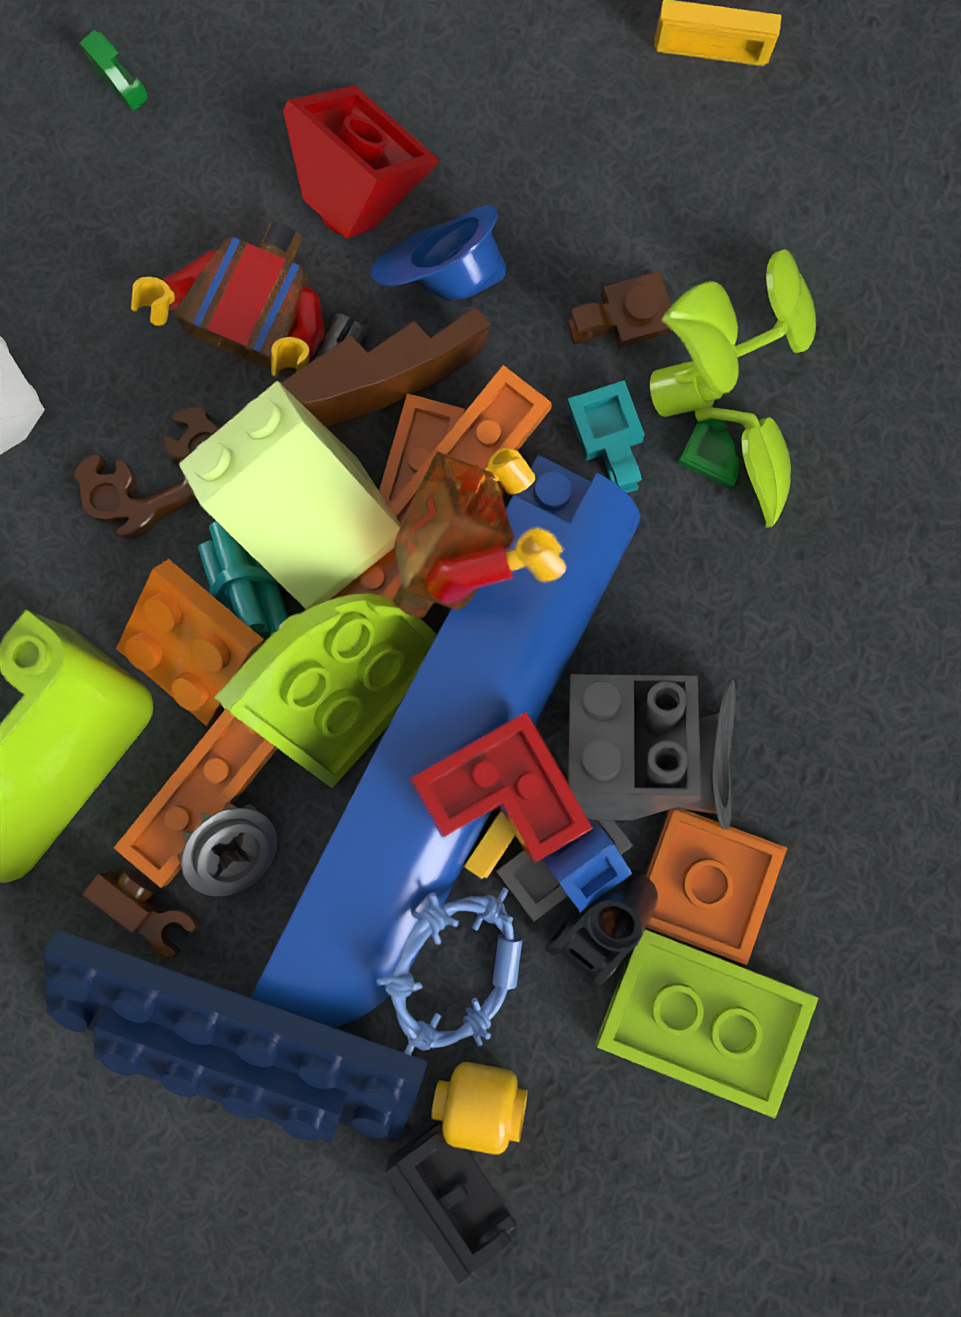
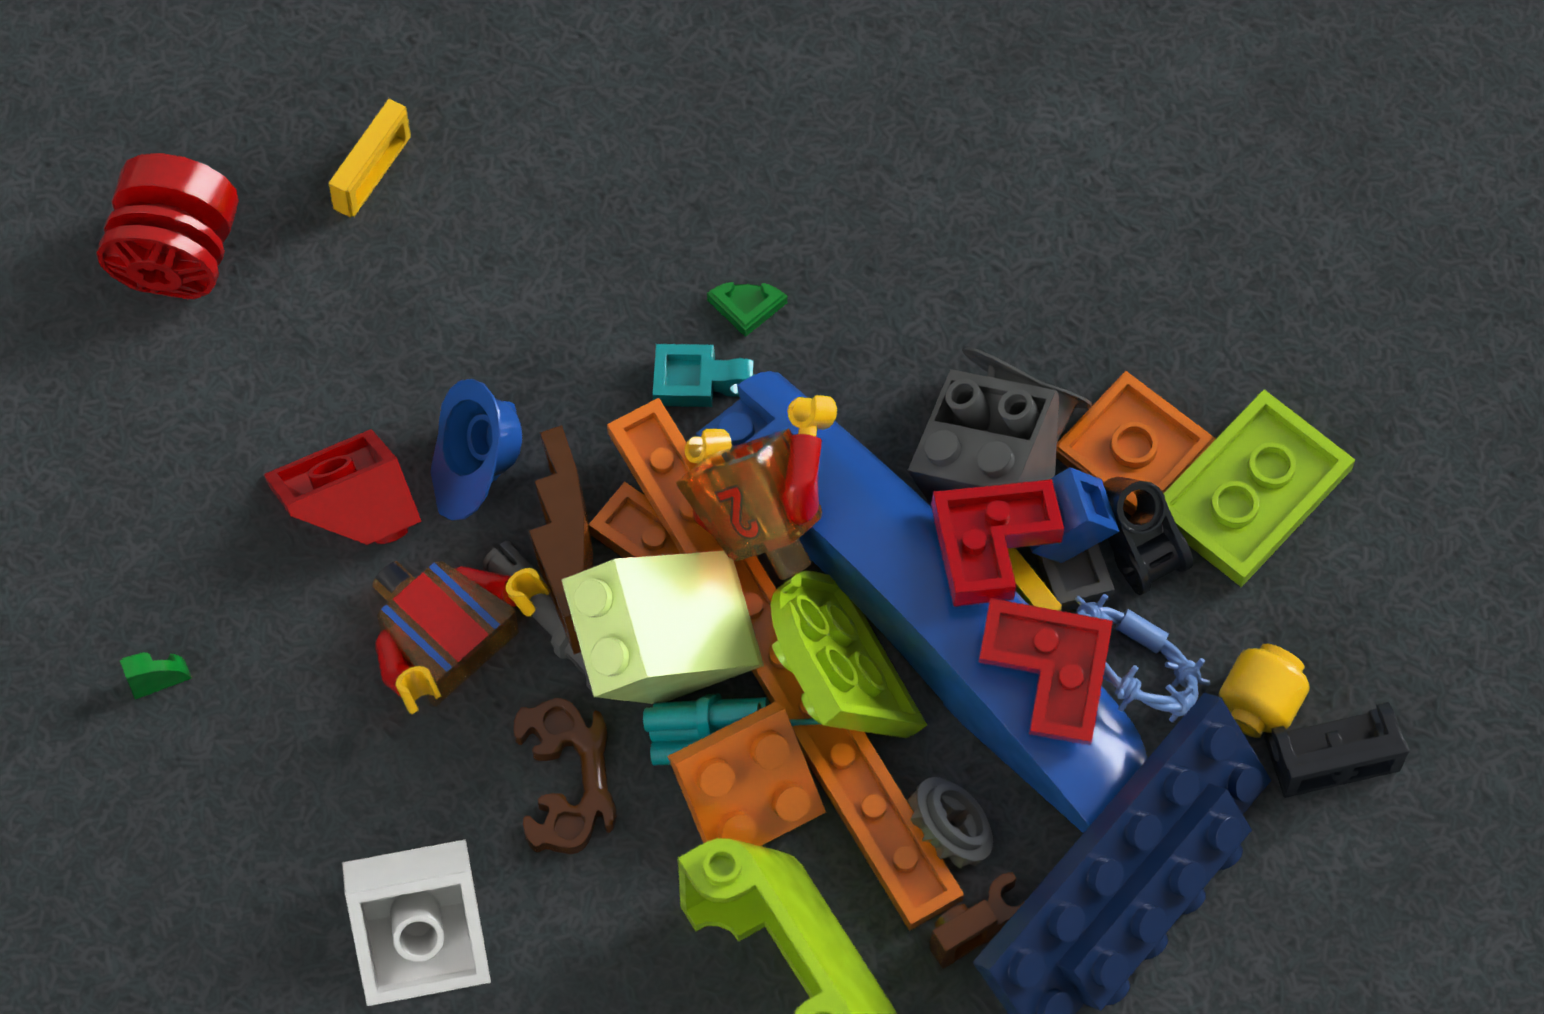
camera: 70 degrees left, 20 degrees down
(398, 912) = (1064, 651): none -> red plate
(630, 311) = (590, 320): reddish brown plate -> none
(709, 331) = (685, 285): lime plant -> none

